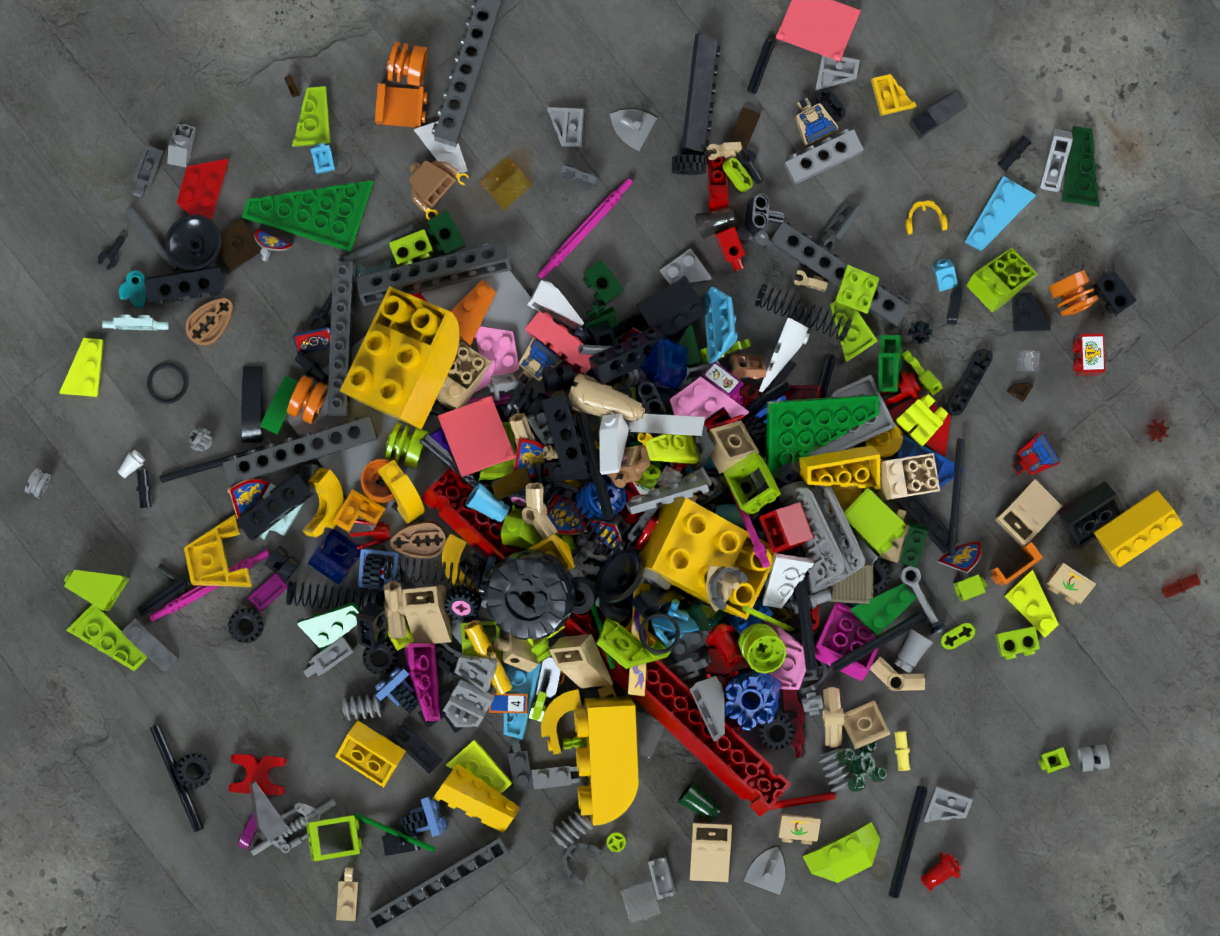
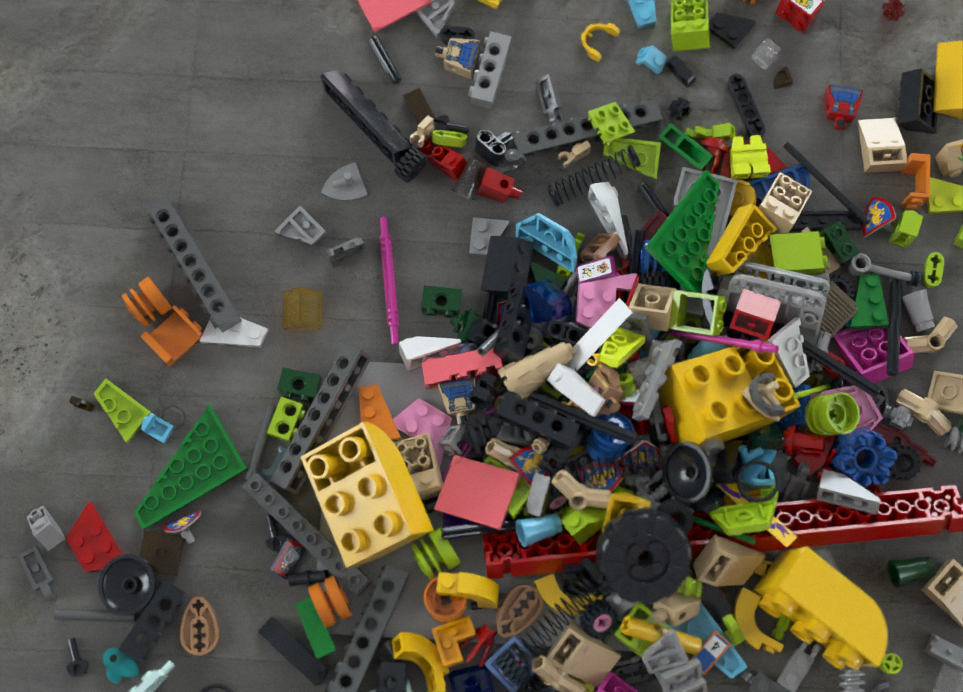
camera: 45 degrees left, 10 degrees down
(431, 182) = (251, 361): medium nougat torso -> none

